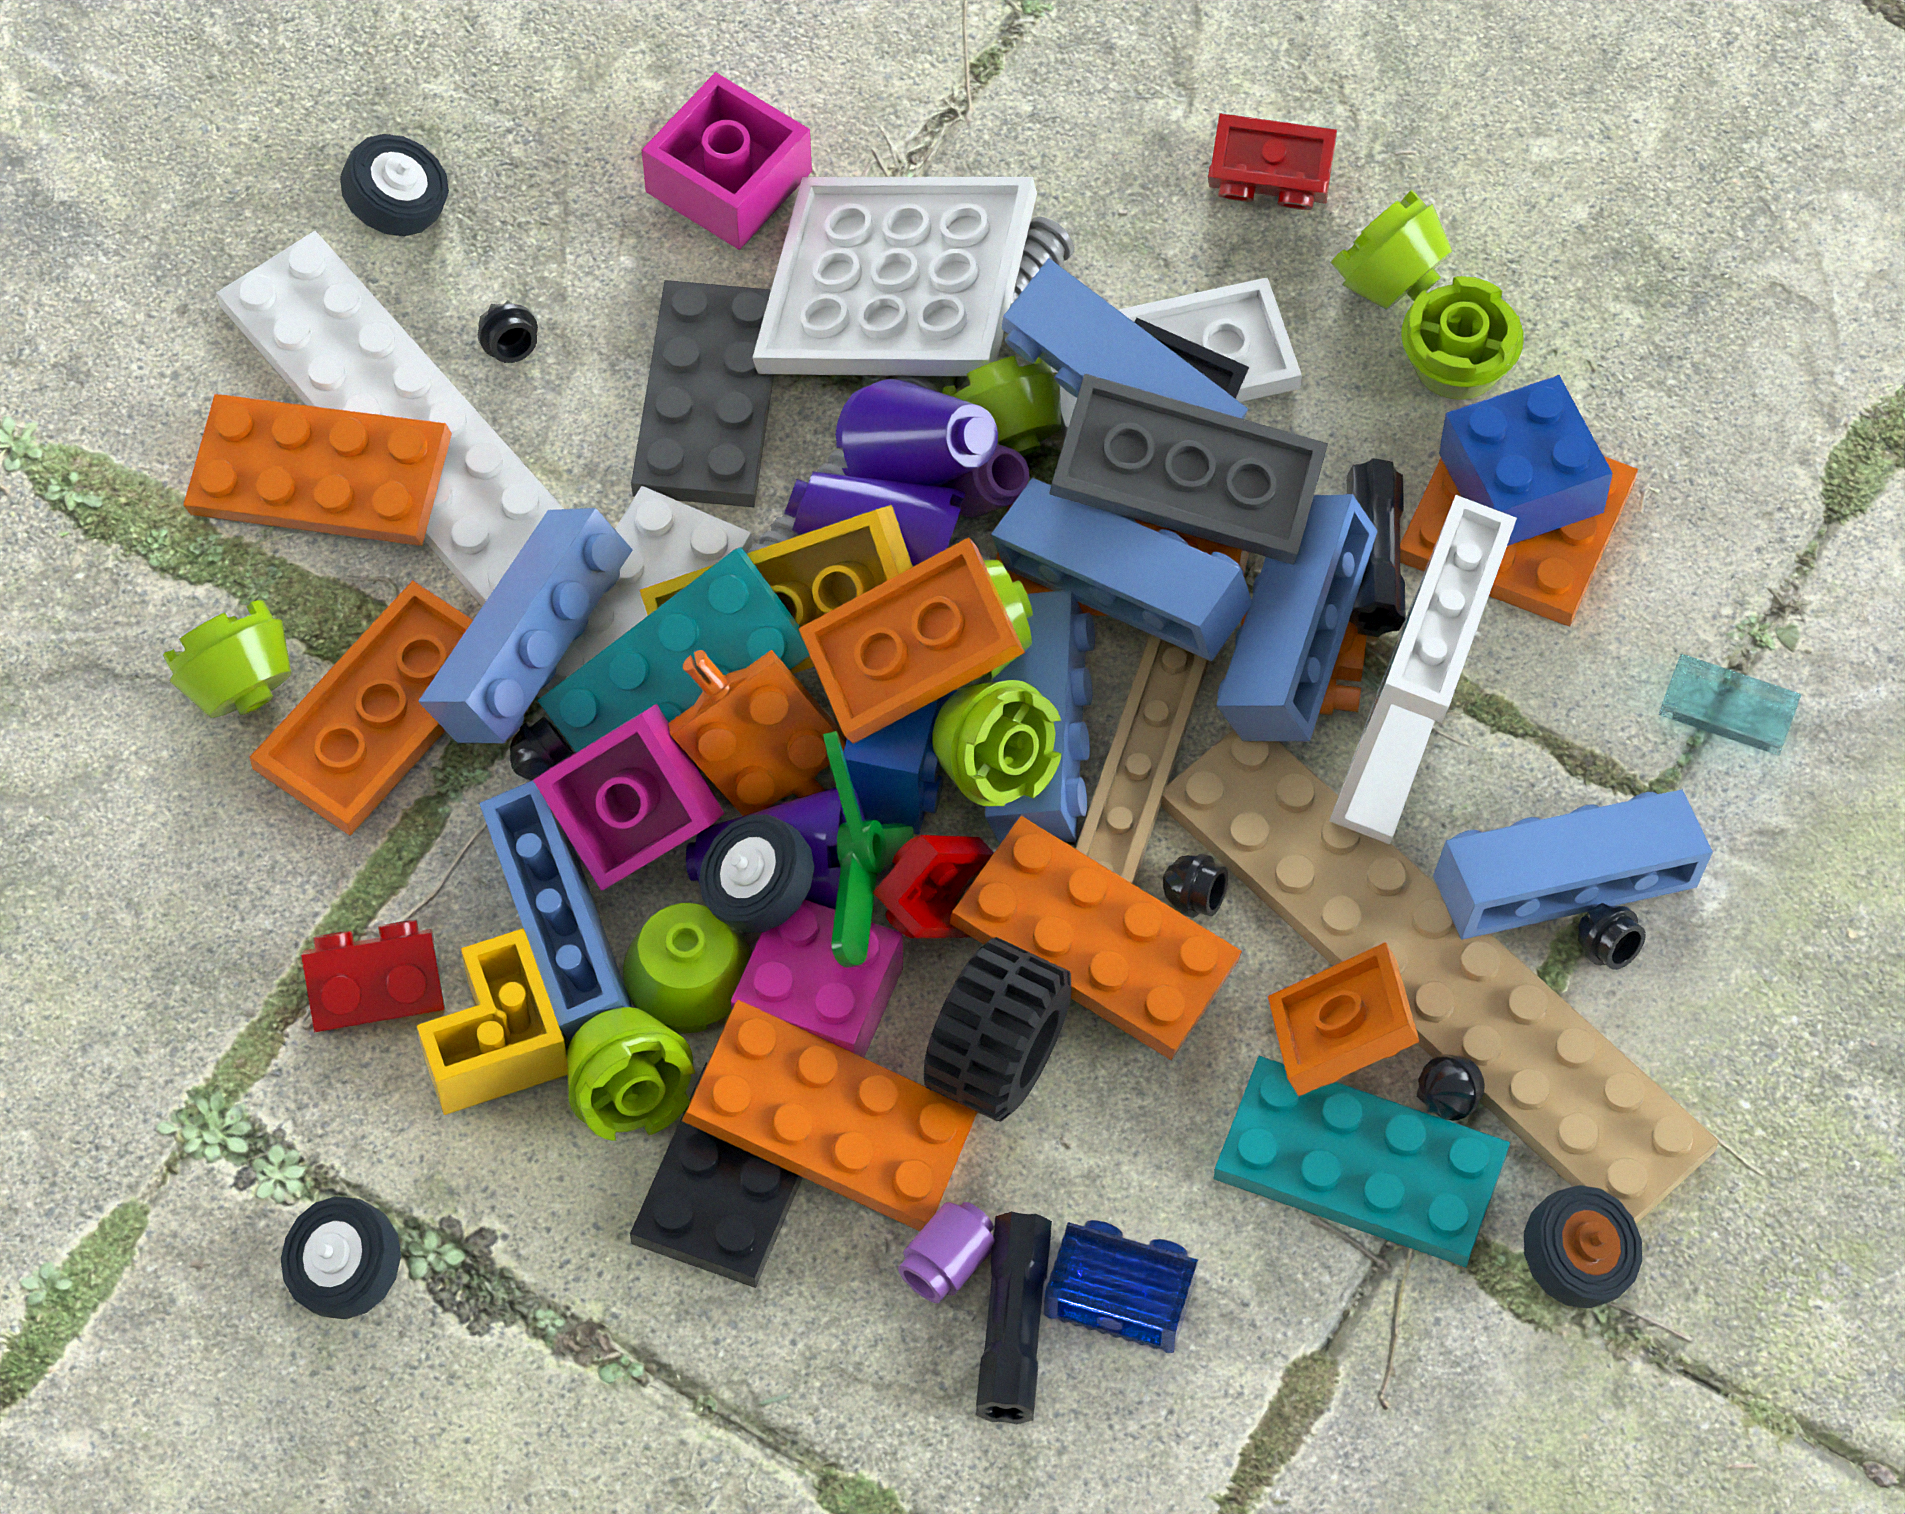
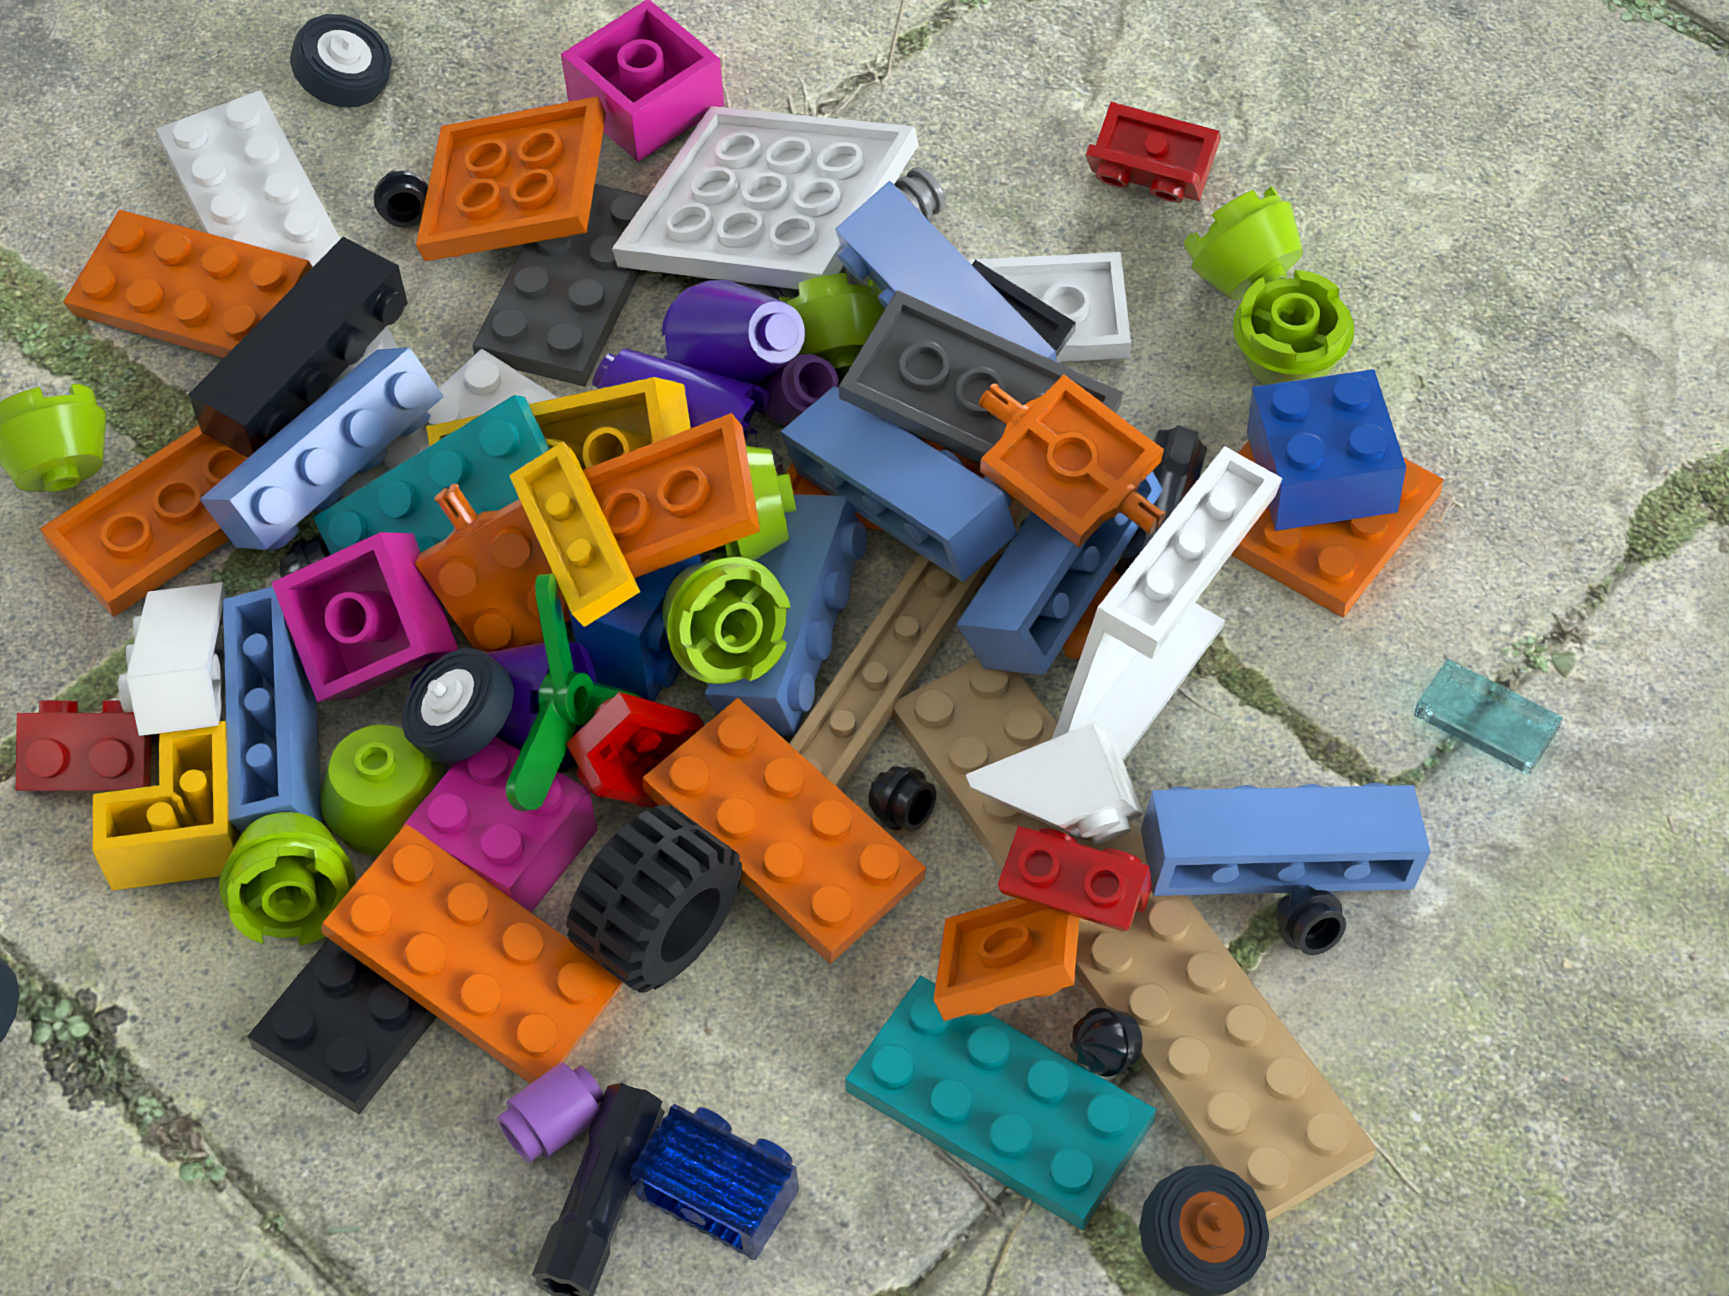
camera: 15 degrees right, 5 degrees down
(451, 871) = (176, 661): none -> white brick
(467, 521) = (299, 347): none -> black brick
(623, 295) = (512, 179): none -> orange plate
(840, 684) = (574, 534): none -> yellow plate
(1298, 524) = (1071, 460): none -> orange plate
(1366, 852) = (1067, 784): none -> white slope
(1394, 939) = (1075, 878): none -> red bracket

